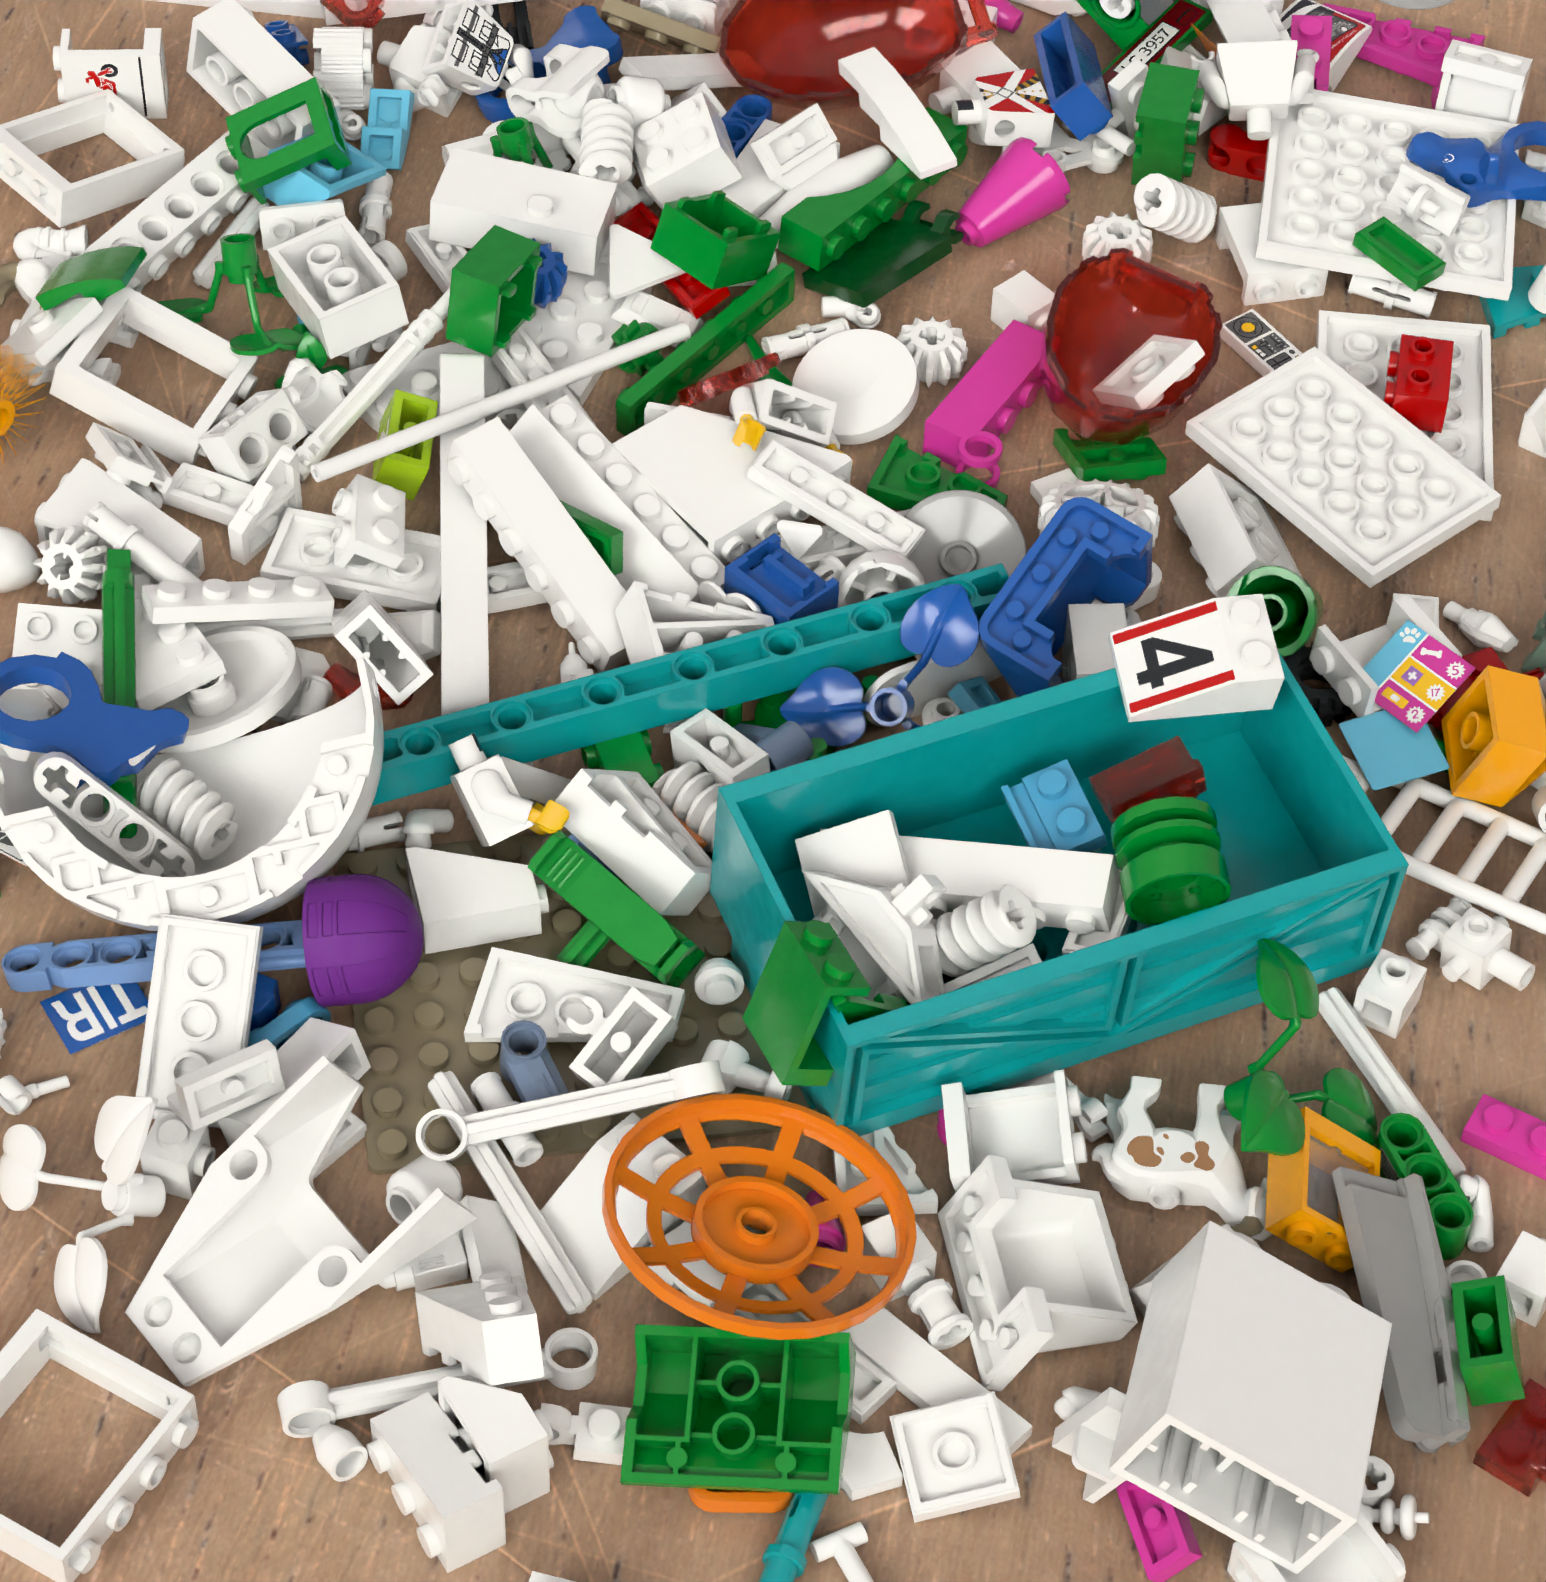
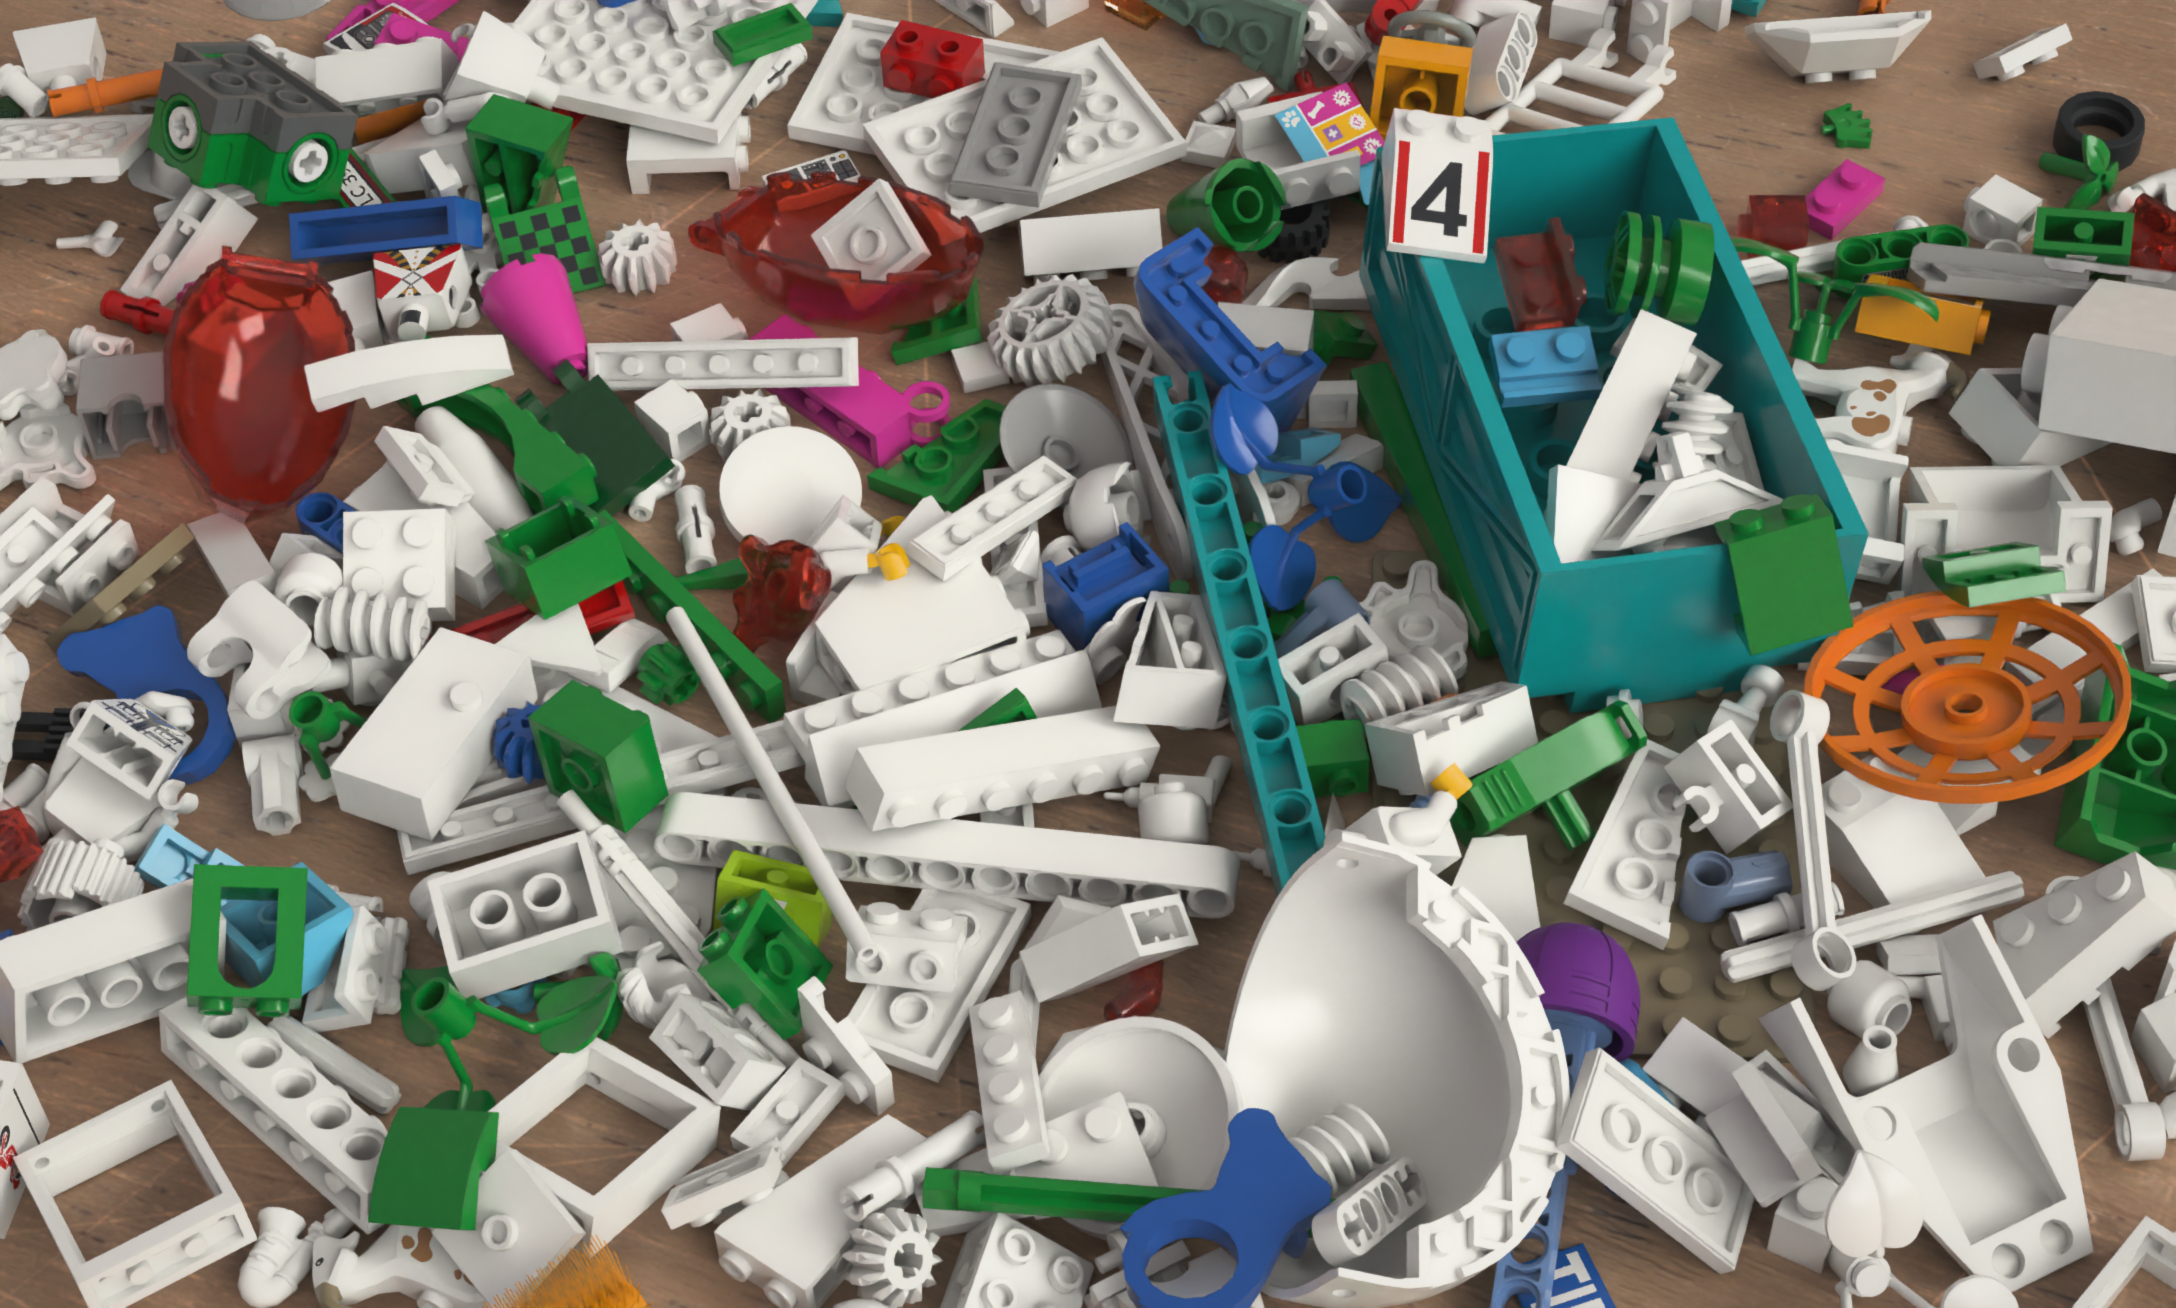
camera: 75 degrees left, 0 degrees up
(331, 427) = (761, 960): none -> green plate
(352, 1196) = (1872, 1062): none -> white cone
(532, 671) = (1174, 815): none -> white head
(924, 296) = (674, 420): none -> white brick
(934, 1241) = (1993, 574): none -> slope
(980, 310) = (726, 363): none -> white tile
(1106, 177) = (550, 229): none -> green flag
(1174, 208) = (636, 200): white piece -> none
(1332, 448) = (1015, 135): none -> light grey tile
(1441, 1074) = (1775, 221): none -> clear red brick

